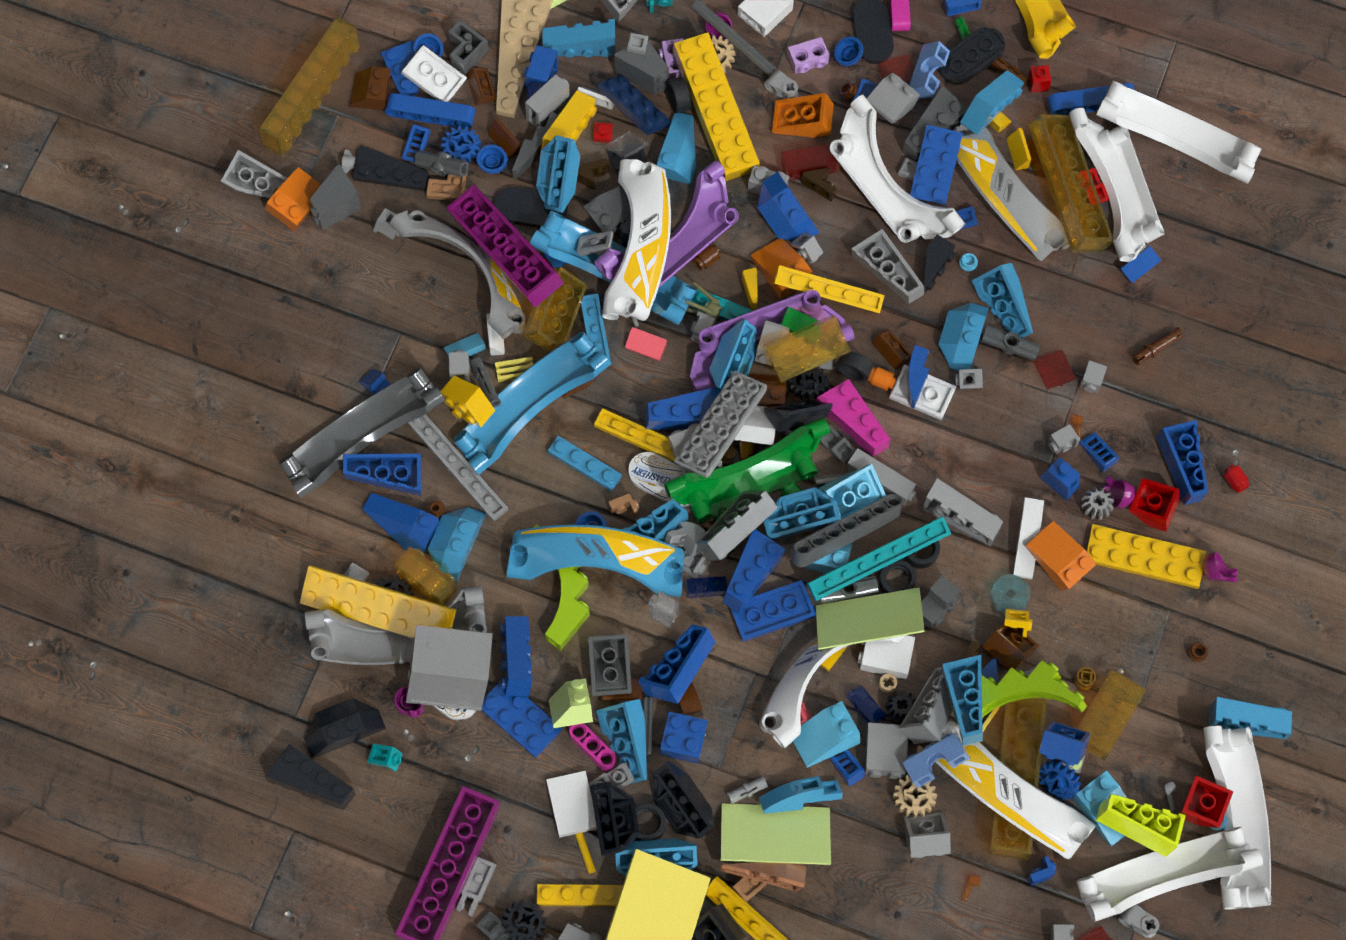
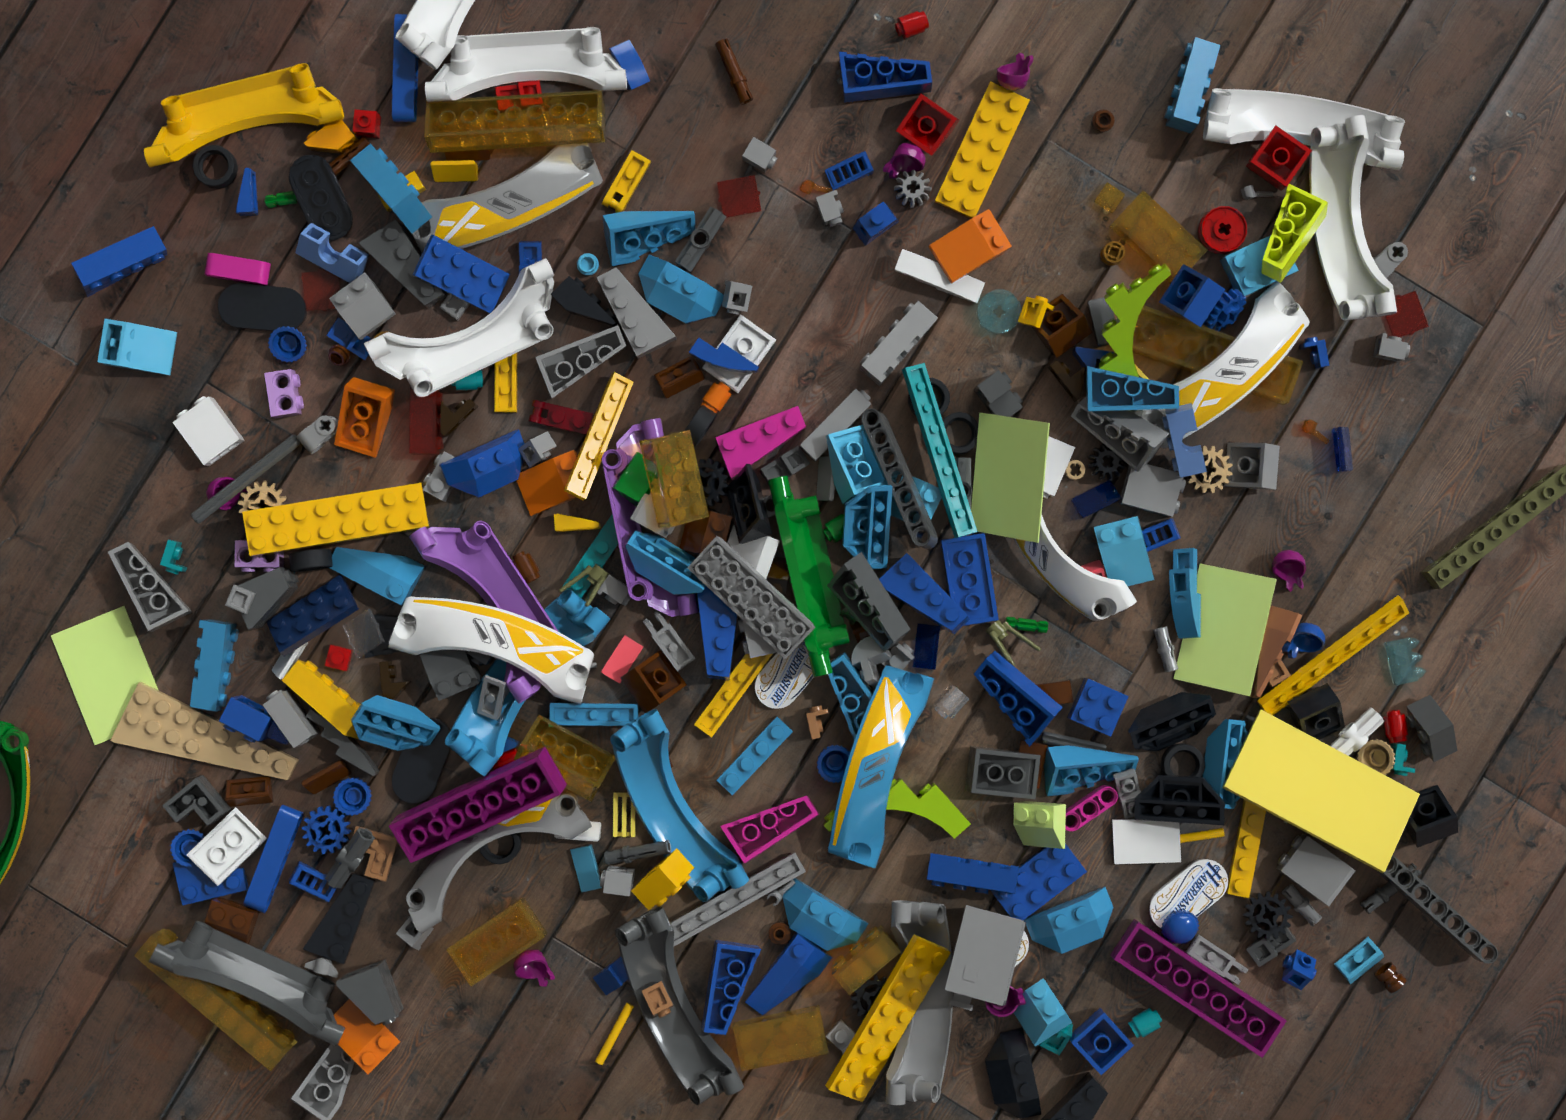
camera: 75 degrees left, 20 degrees up
(327, 393) = (614, 1033): none -> yellow bar
(335, 106) = (255, 974): none -> dark grey panel
(346, 524) = (780, 1038): none -> clear yellow brick
(362, 418) = (658, 1000): none -> medium nougat bracket
(375, 318) = (533, 965): none -> magenta piece
(386, 792) = (1100, 1041): none -> blue brick
(391, 286) = (497, 941): none -> clear yellow brick
(405, 736) = (1042, 1013): none -> medium azure slope
(408, 831) = (1145, 1023): none -> teal brick
(468, 289) = (496, 859): none -> black tyre
(469, 503) = (778, 893): none -> light grey hand
(488, 753) = (1072, 922): none -> dark azure wedge
(500, 847) = (1180, 927): none -> blue hat
(526, 482) = (764, 829): none -> dark pink wedge
(530, 851) = (1190, 890): none -> white tile
(632, 371) = (653, 681): none -> reddish brown slope
(667, 378) = (670, 643): none -> light grey hinge
(732, 641) = (998, 633): none -> olive plant
(743, 666) = (1028, 624): none -> green axle
(781, 909) = (1306, 639): none -> blue piece
(837, 261) = (561, 417): none -> dark red plate
(843, 884) = (1289, 567): none -> magenta piece
(851, 190) = (470, 382): none -> teal brick
(855, 218) = (505, 385): none -> yellow tile
(932, 305) = (638, 320): none -> light grey wedge
(961, 914) = (1342, 449): none -> clear blue slope
(1022, 55) = (331, 138): none -> light orange slope
(1044, 279) = (626, 181): none -> yellow plate
(1130, 758) = (1229, 240): none -> red wheel
(1133, 669) = (1109, 197): none -> clear yellow tile

